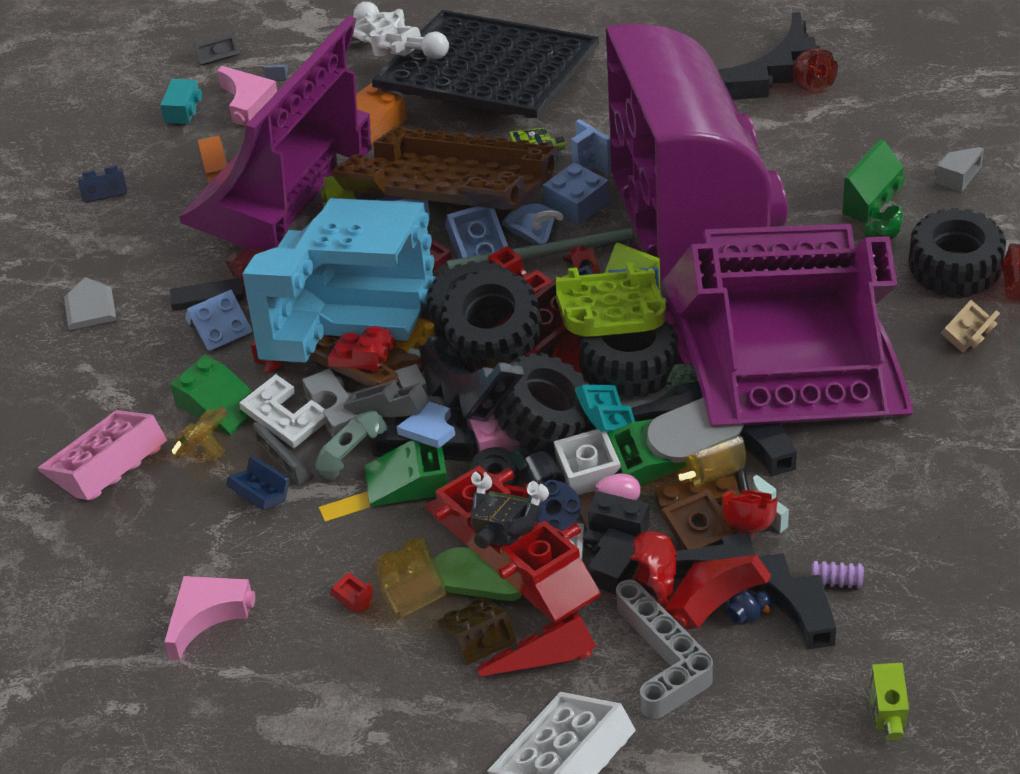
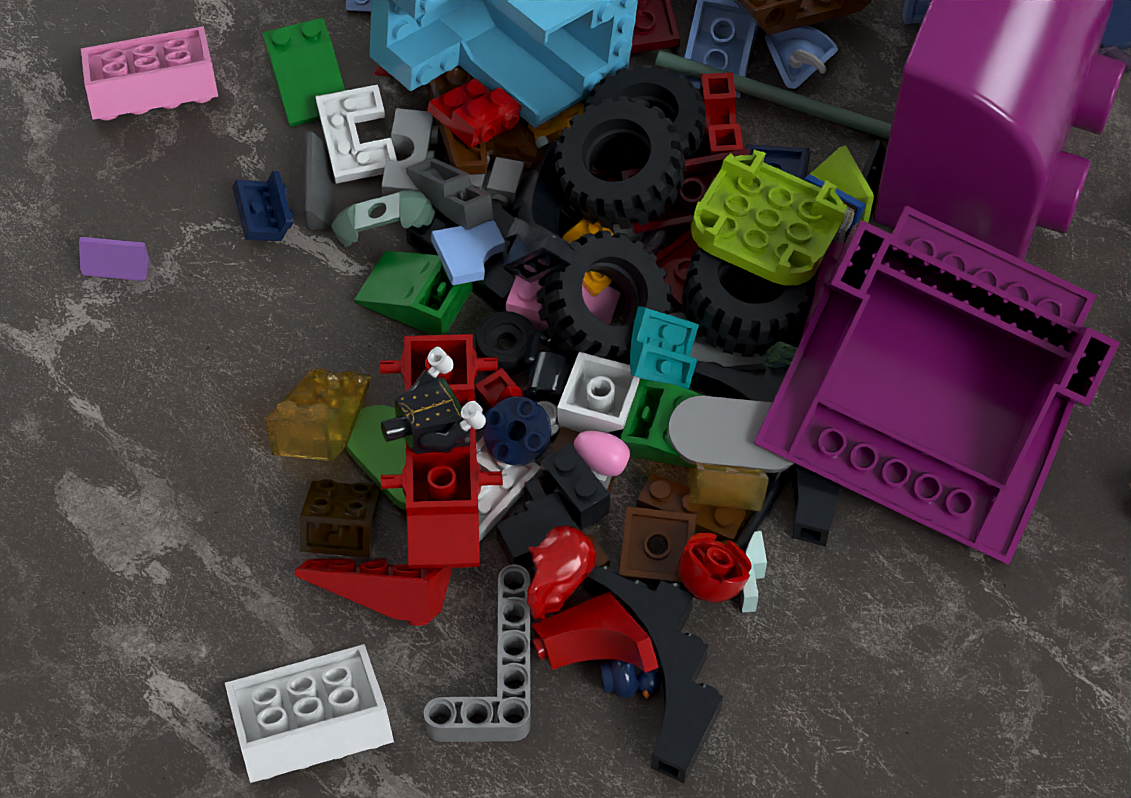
camera: 30 degrees right, 15 degrees up
(168, 574) = (113, 258): none -> medium lavender slope
(202, 434) = (251, 114): clear yellow plate -> none
(203, 604) = (102, 313): bright pink arch -> none
(345, 506) = (331, 285): yellow sticker -> none
(353, 593) = (254, 394): red plate -> none
(576, 193) = (874, 43): medium blue brick -> none
(579, 254) = (814, 128): red bracket -> none
(839, 574) = (751, 705): lavender piece -> none

